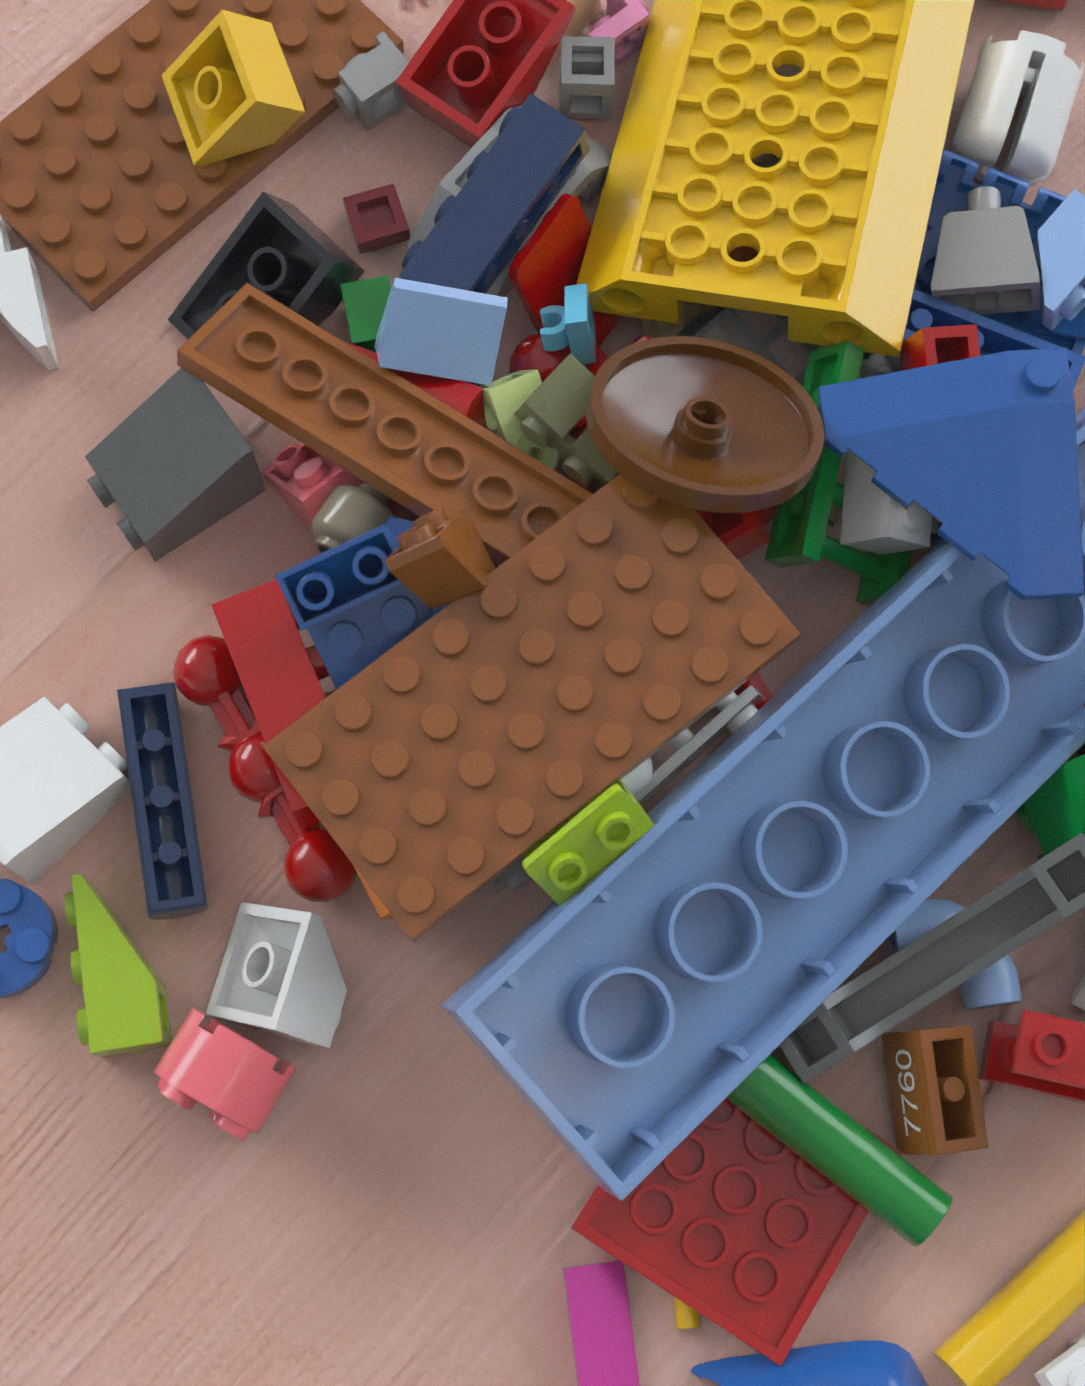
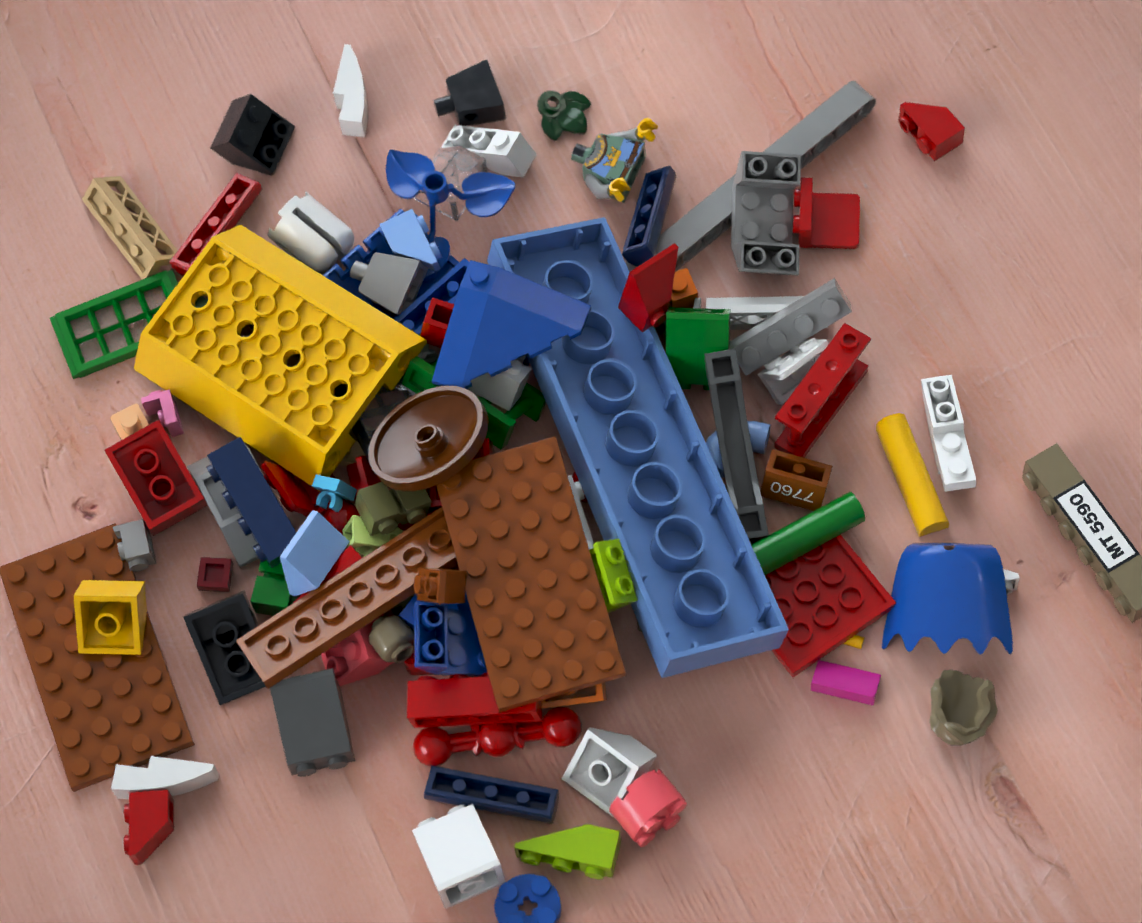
camera: 55 degrees left, 10 degrees down
(586, 77) = (190, 435): light grey brick -> none

